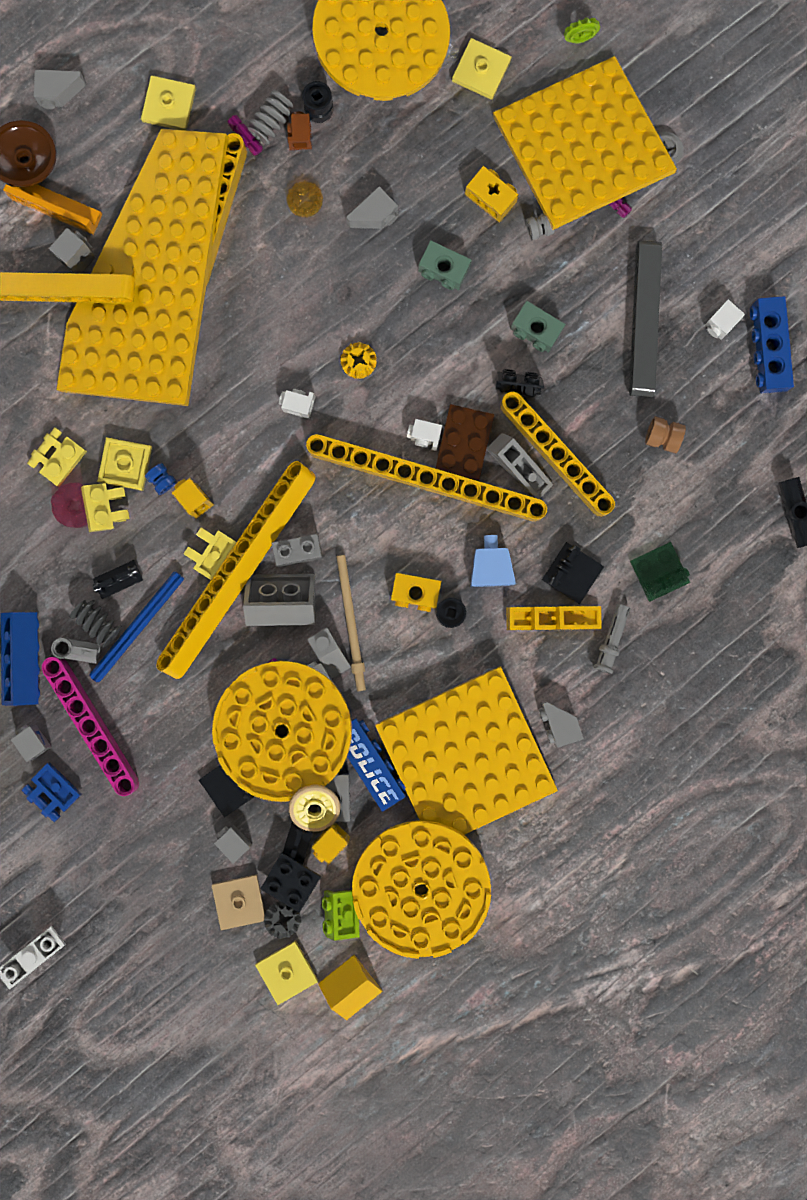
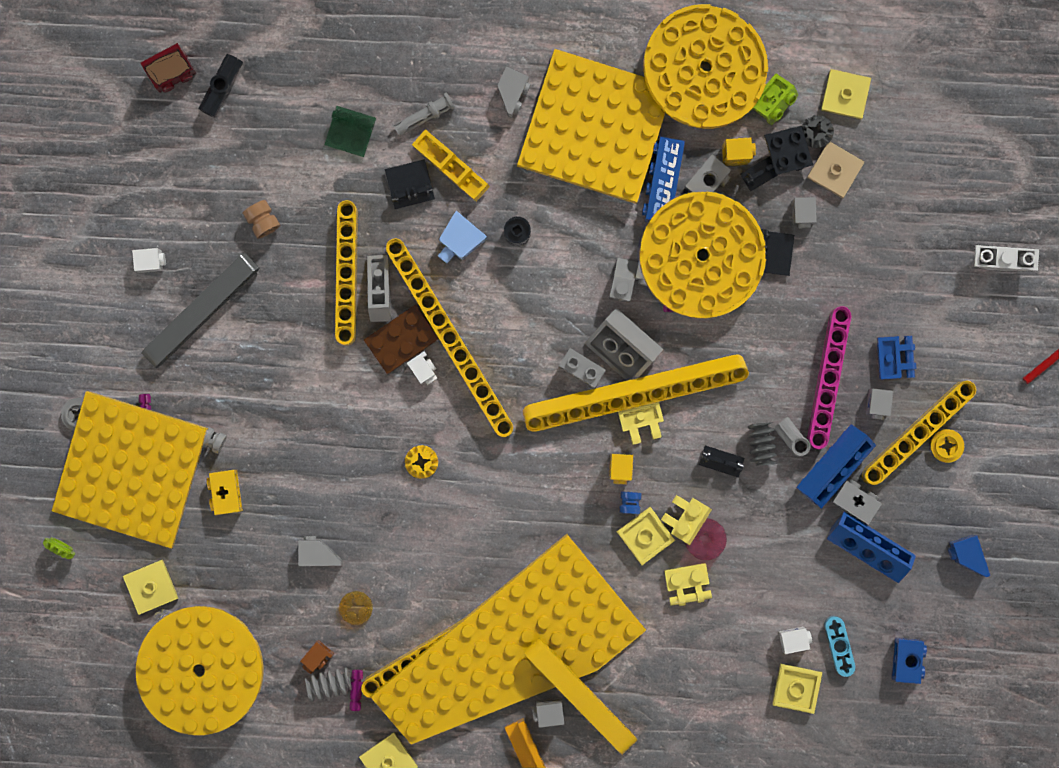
camera: 140 degrees left, 0 degrees up
(136, 627) = (738, 417): blue axle -> none
(297, 402) = (490, 470): white brick -> none
(314, 795) = (723, 194): light yellow wheel -> none
(317, 101) = (286, 665): black wheel -> none
(349, 988) = (813, 46): yellow slope -> none
(357, 667) = (612, 253): tan bar -> none
(429, 587) = (529, 280): yellow brick -> none
(438, 254) = (295, 462): sand green brick -> none
(531, 381) = (320, 340): black hinge -> none
(533, 315) = (271, 362): sand green brick -> none
(776, 311) = (120, 217): blue brick -> none

